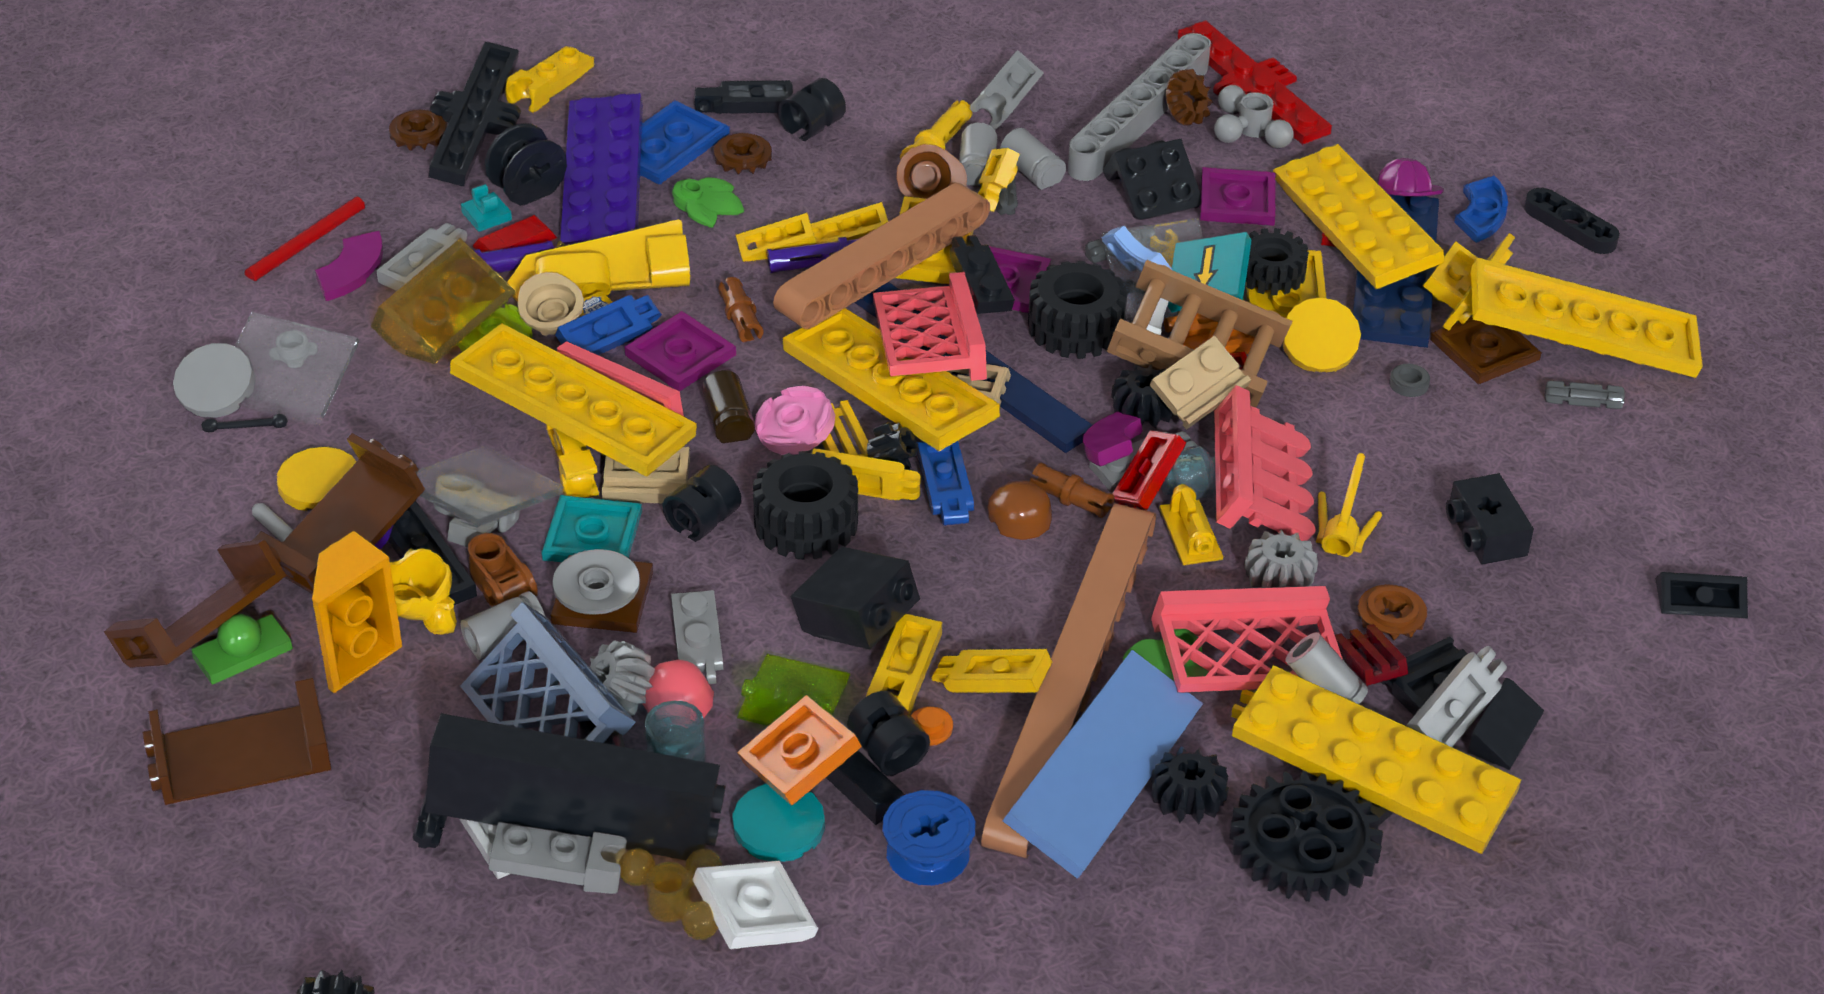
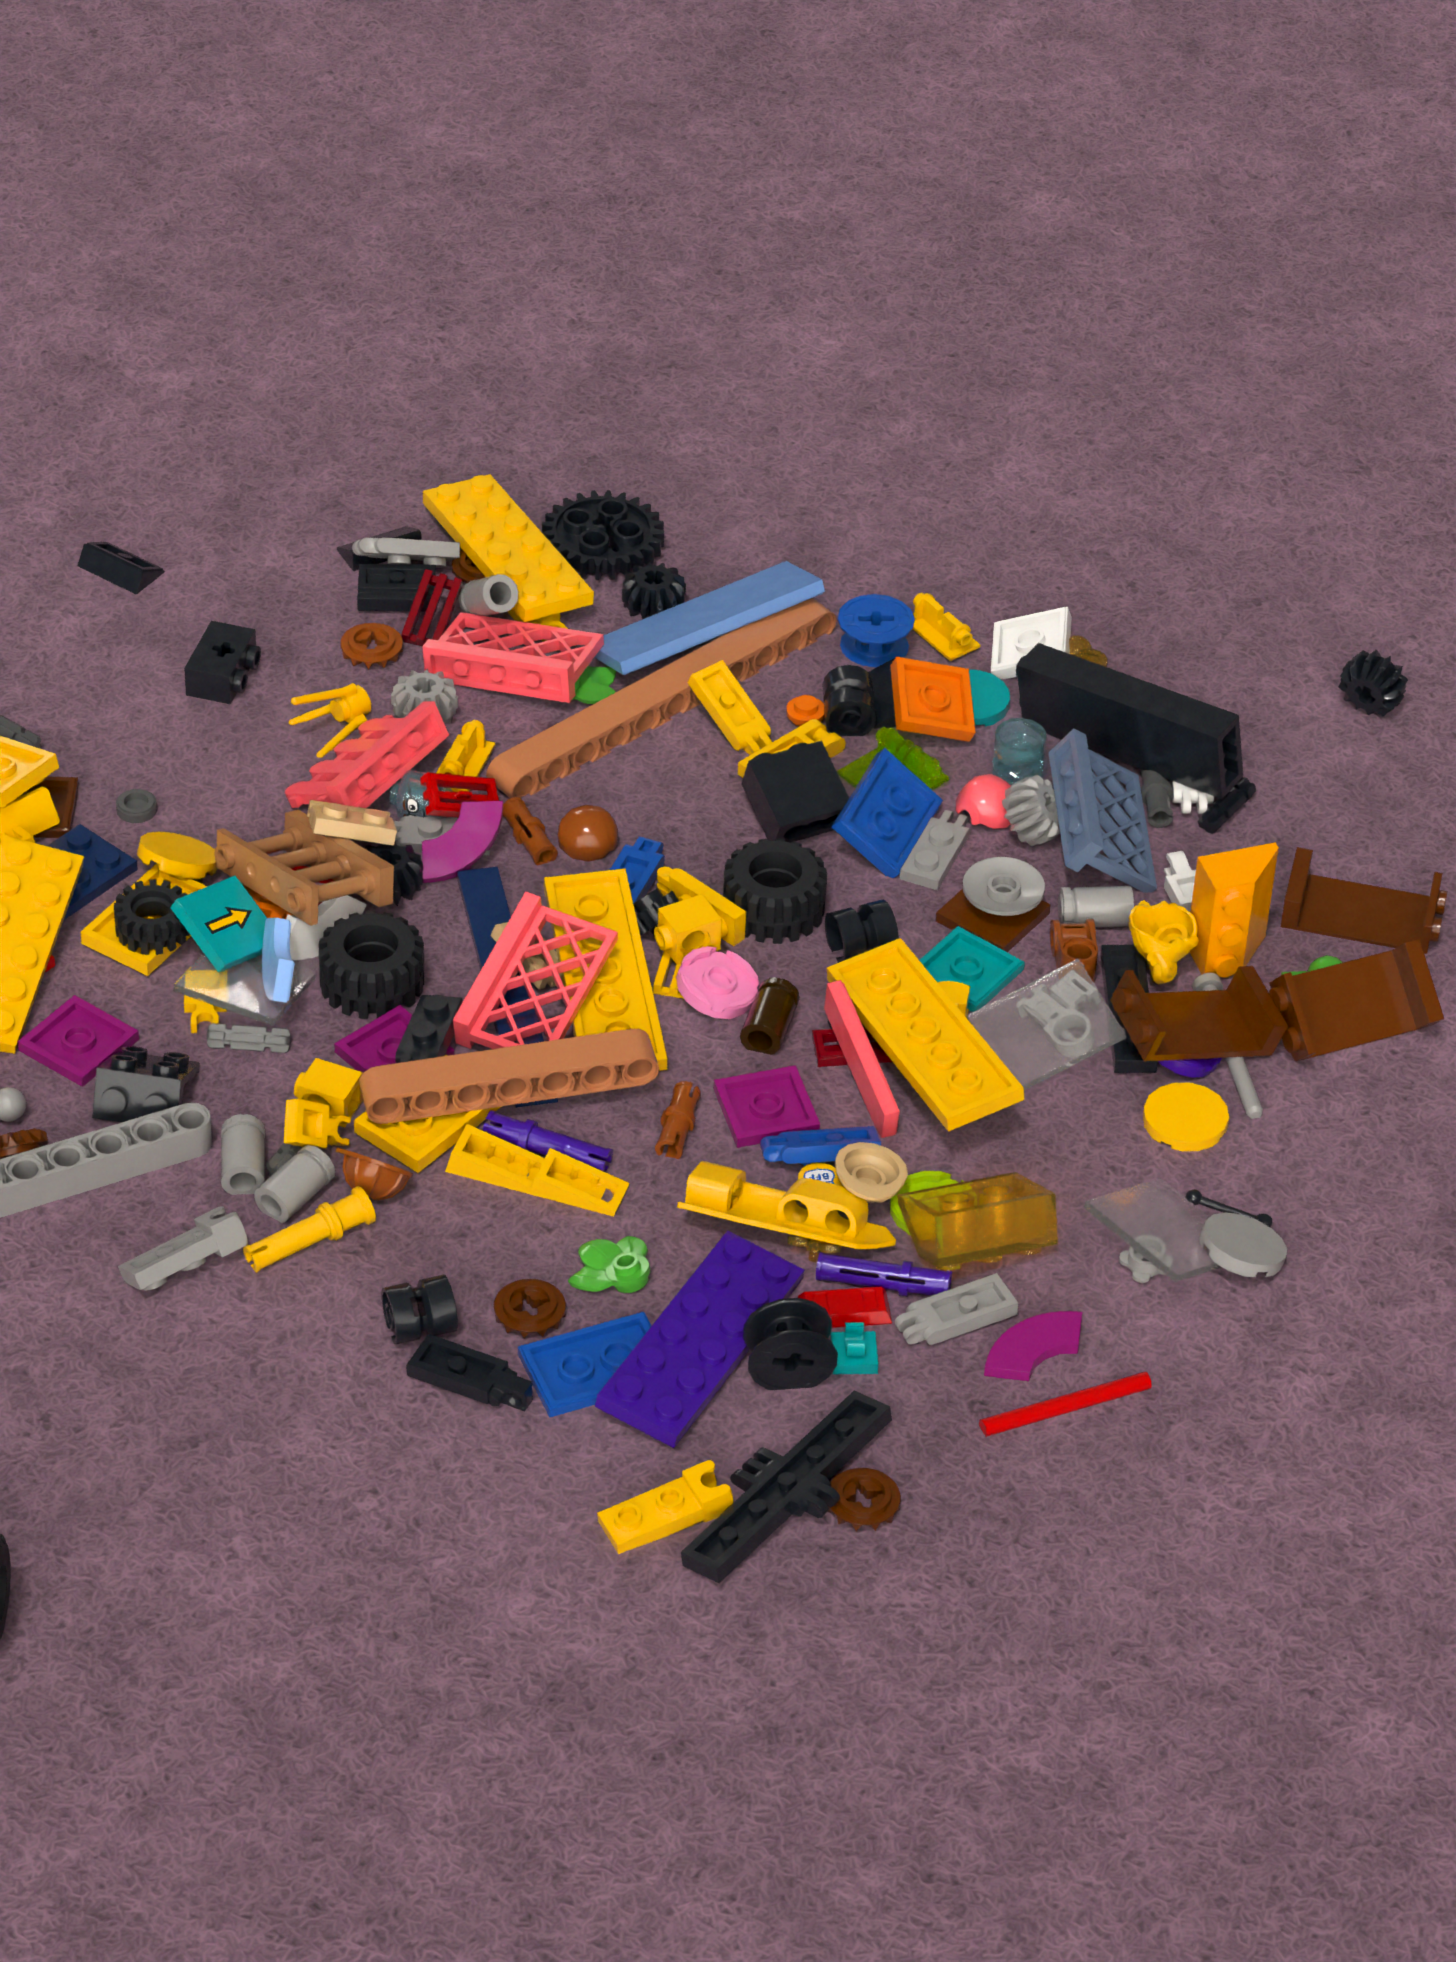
camera: 150 degrees left, 0 degrees up
(426, 686) = (1179, 880): none -> white plate
(759, 621) = (887, 813): none -> blue tile
(846, 426) = (687, 927): none -> yellow brick
(865, 892) = (940, 629): none -> yellow hinge
(1016, 217) = (332, 1086): none -> yellow brick

